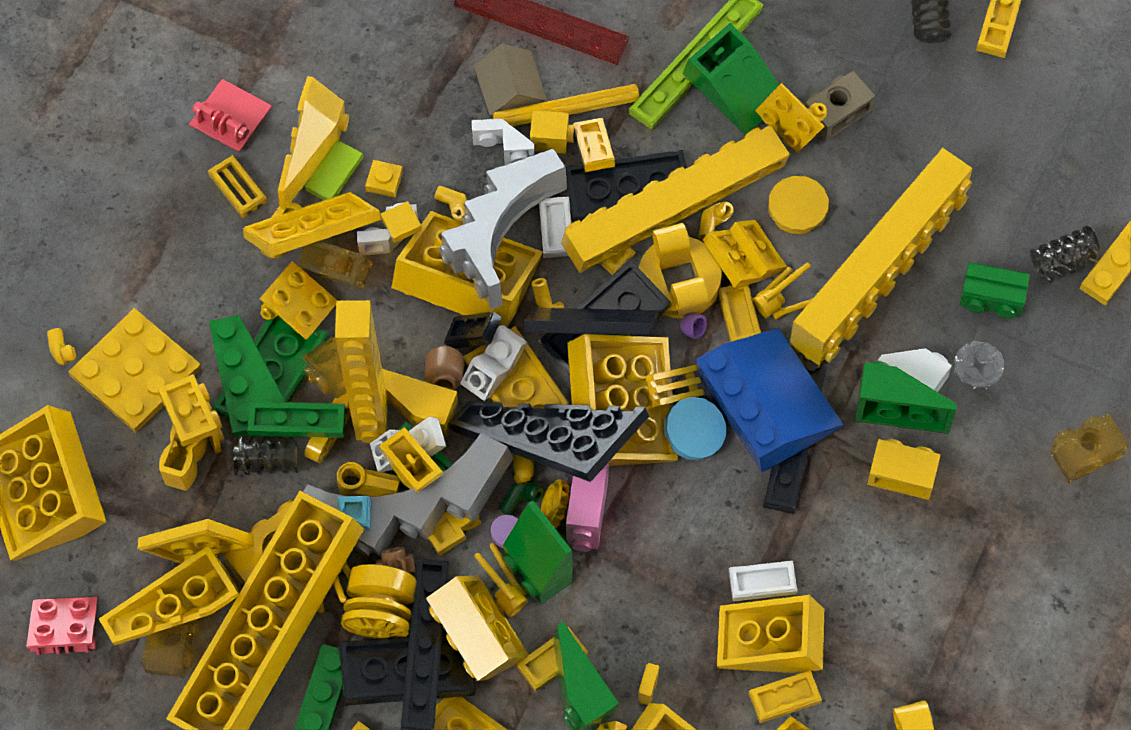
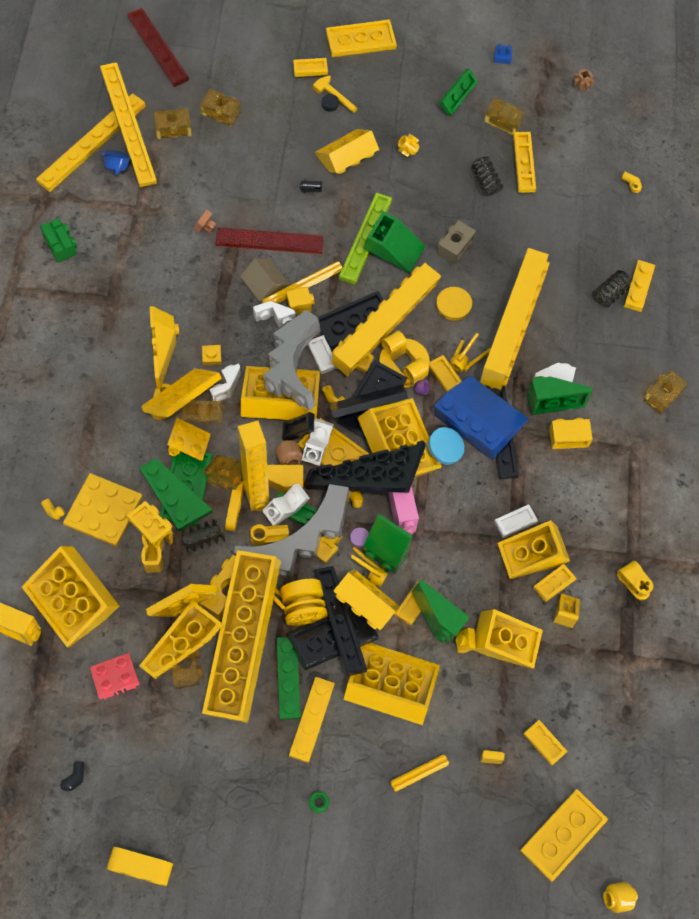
camera: 25 degrees left, 0 degrees up
(229, 115) = (106, 343): coral hinge -> none
(251, 205) = (138, 392): yellow tile -> none
(296, 419) = (215, 509): green plate -> none
(334, 171) = (180, 359): lime tile -> none
(357, 507) = (271, 549): medium azure tile -> none
(397, 559) = (303, 573): medium nougat gear -> none
(401, 222) = (234, 376): yellow tile -> none
(410, 461) = (294, 513): yellow slope -> none
(454, 199) = (259, 355): yellow arm -> none
(519, 494) = (359, 513): dark green arm -> none
(555, 502) = (384, 508): yellow gear -> none
(594, 144) = (327, 301): yellow plate -> none
(648, 683) = (475, 598): yellow tile -> none
(691, 382) = (433, 420): yellow tile -> none
(714, 216) = (409, 323): yellow arm -> none
(744, 253) = (435, 339): yellow slope -> none
(791, 118) = (435, 254): yellow hinge -> none
(986, 354) = (587, 356): clear gear -> none
(994, 290) = (580, 320): green brick -> none

